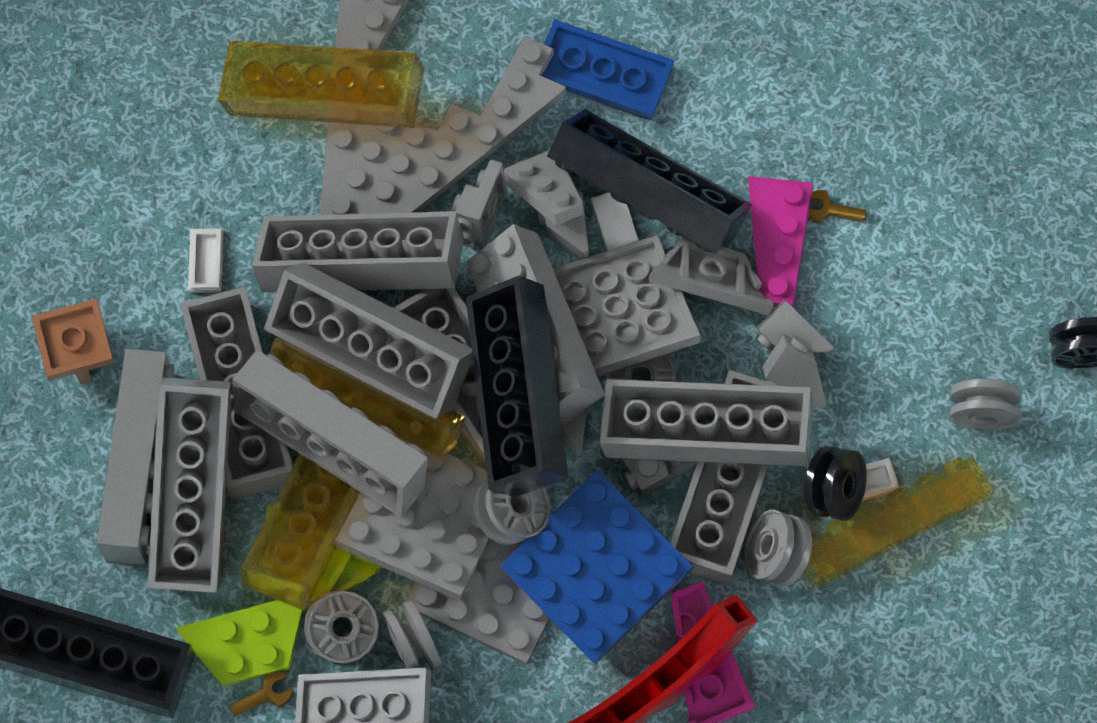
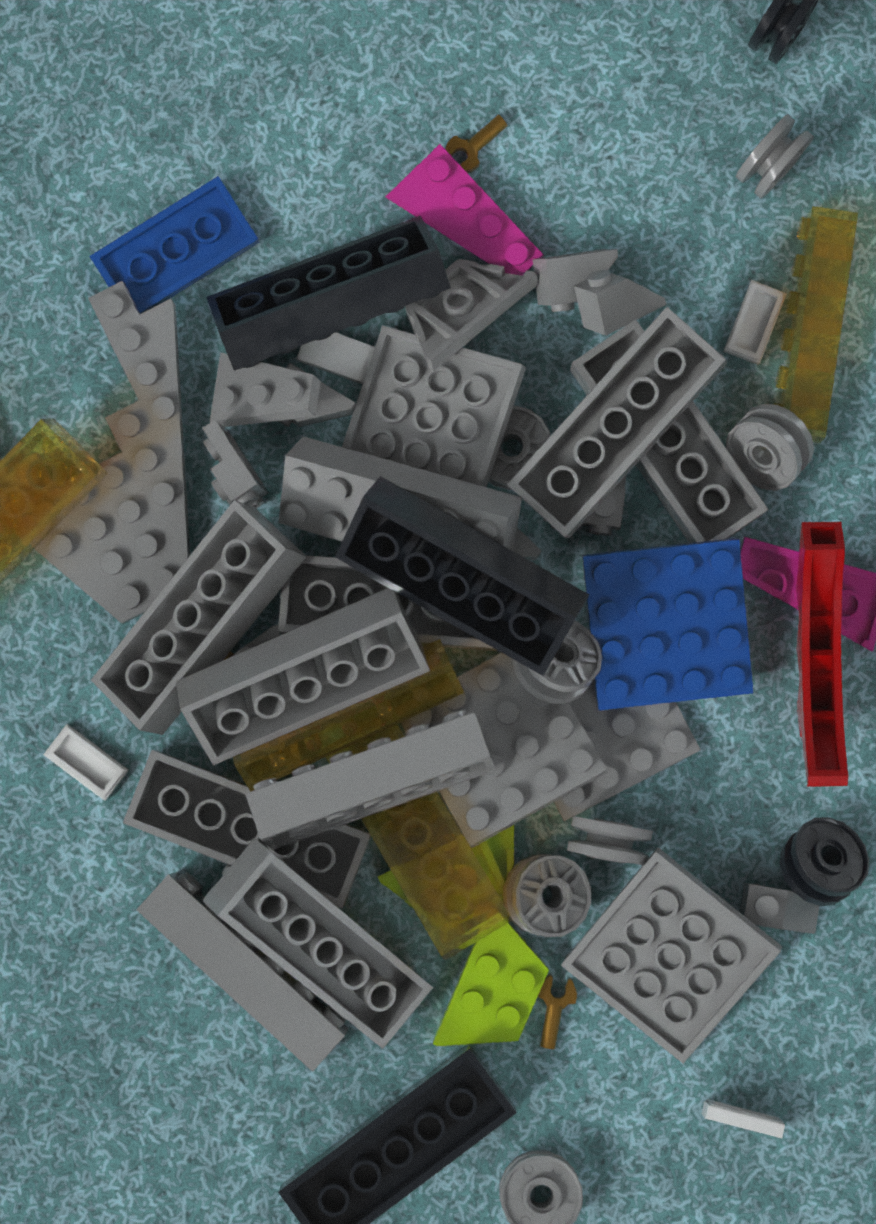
camera: 50 degrees left, 15 degrees up
(73, 340) = (81, 949): nougat bracket -> none
(835, 483) = (753, 349): black wheel -> none

